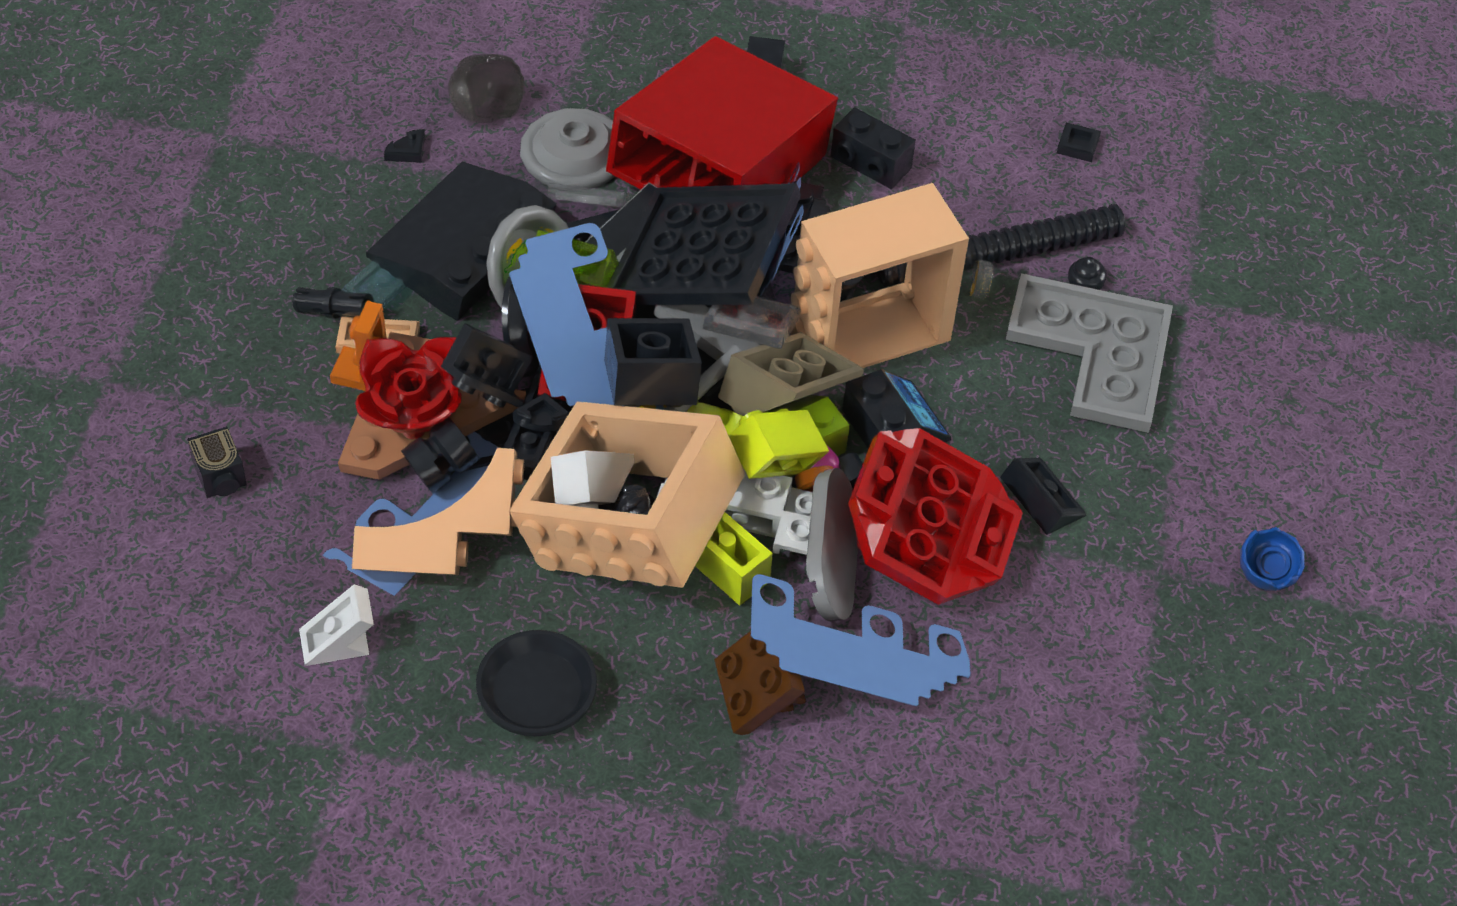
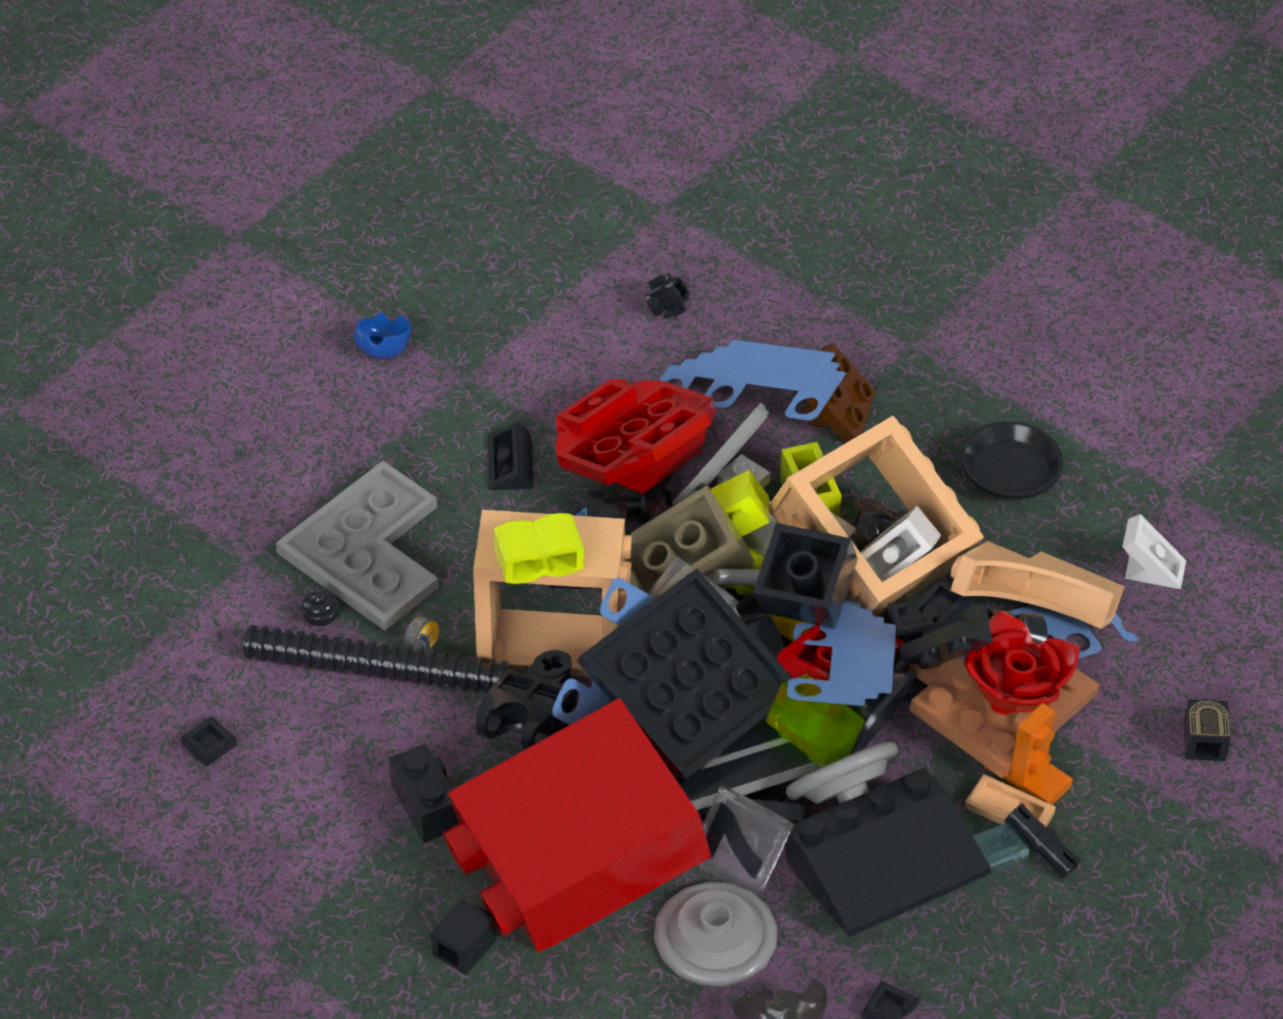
camera: 150 degrees left, 5 degrees down
(884, 197) = (538, 548): none -> neon yellow brick
(1027, 741) = (667, 296): none -> black gear

